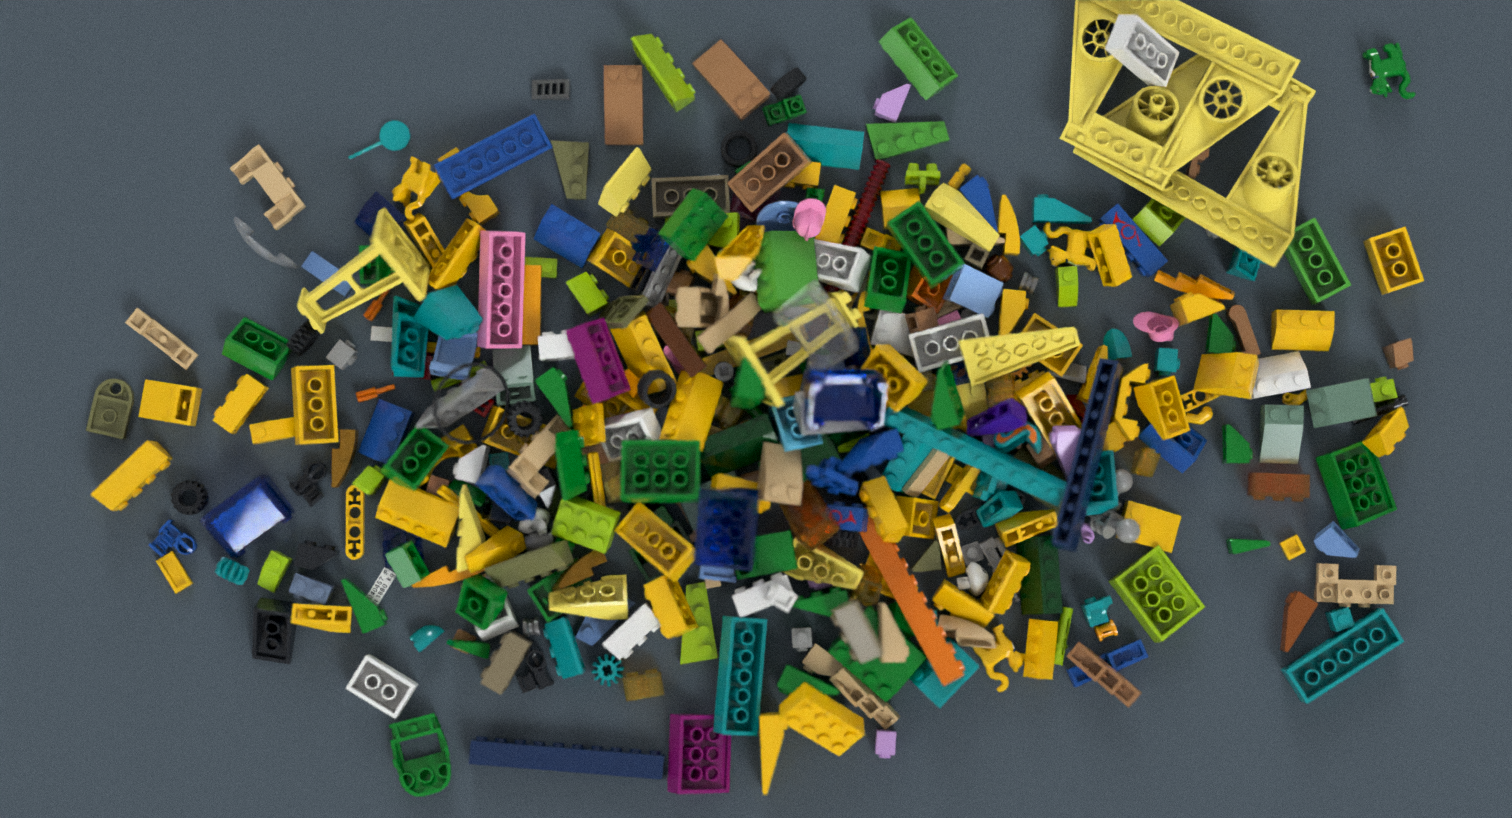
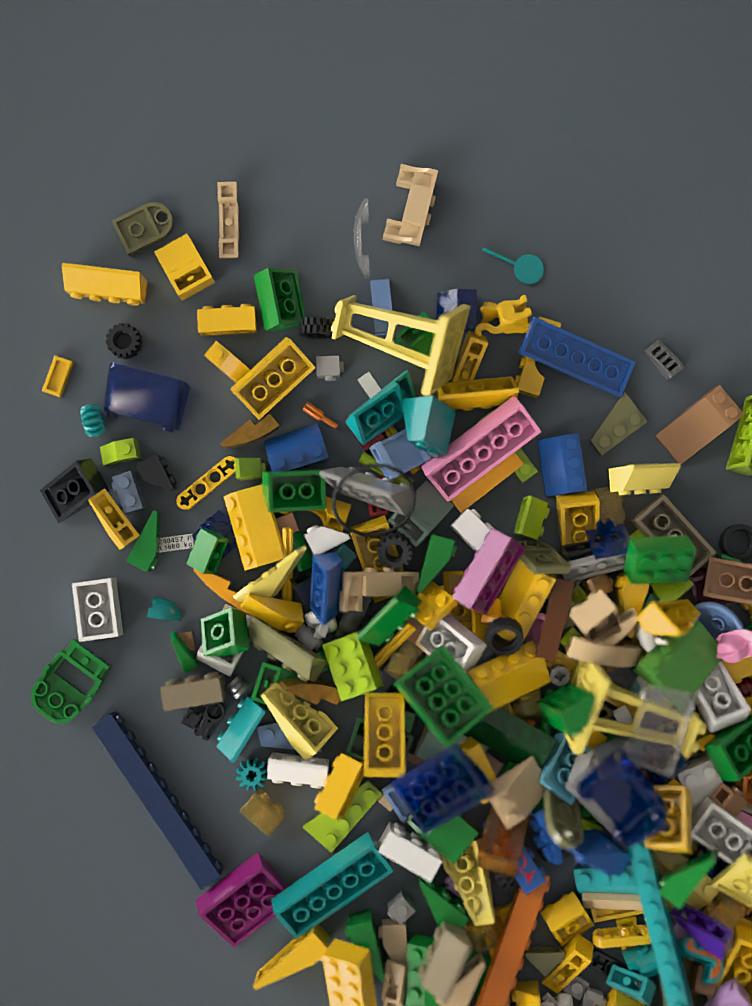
camera: 50 degrees right, 0 degrees up
(171, 535) = (84, 351): blue piece -> none
(305, 484) = (205, 421): black piece -> none
(375, 306) = (386, 362): orange axle -> none
(779, 596) = (421, 871): white bracket -> none
(826, 458) = (563, 820): none -> olive tile
(883, 509) = (558, 897): yellow slope -> none

